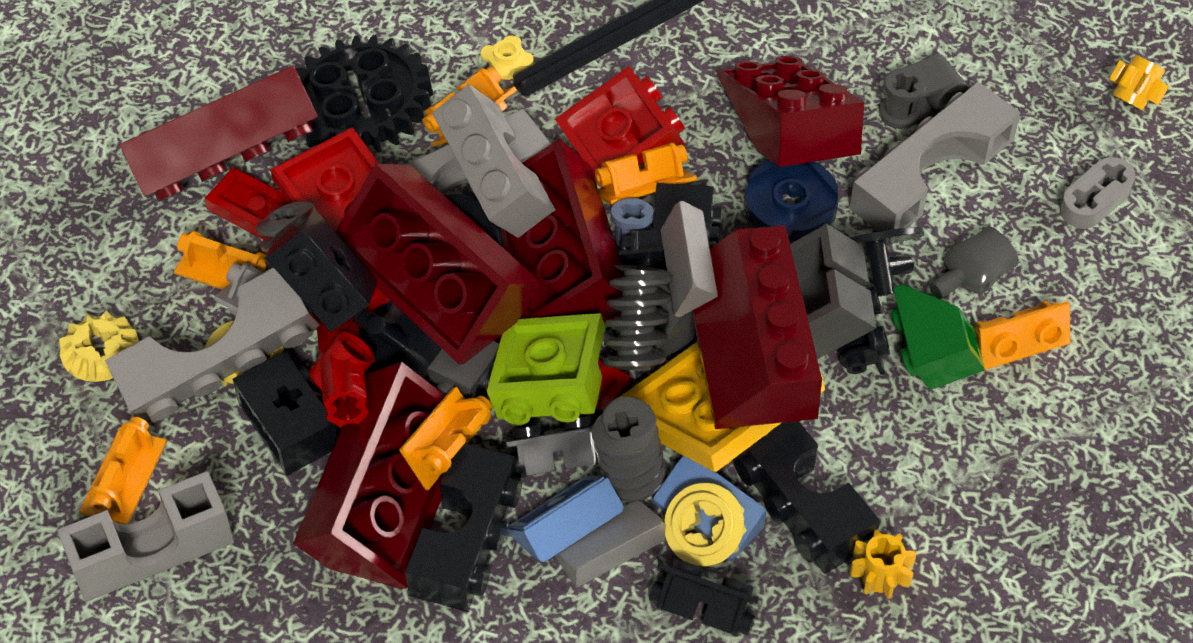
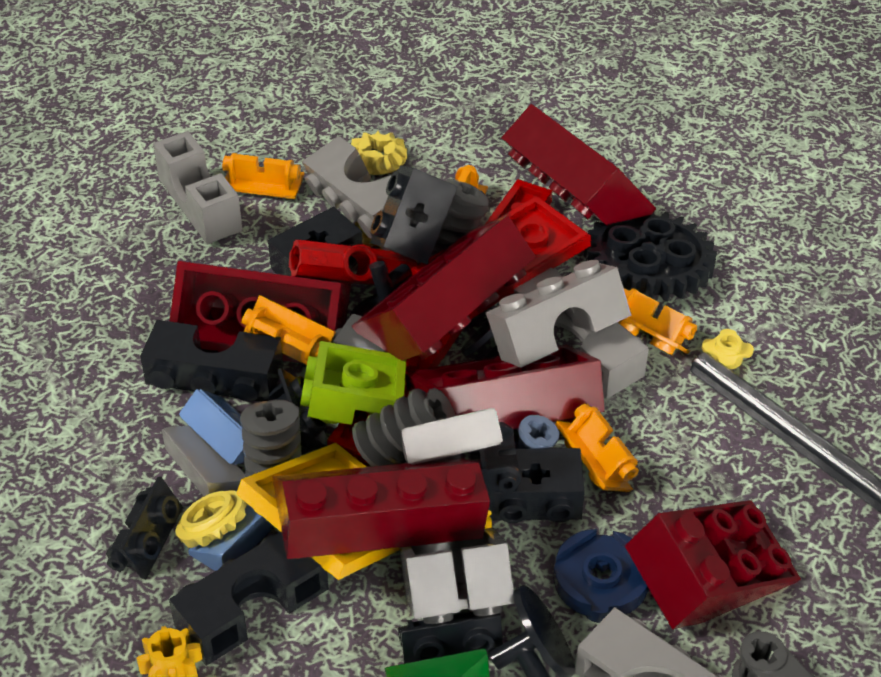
camera: 85 degrees right, 10 degrees down
(620, 121) = (662, 430): red plate -> none

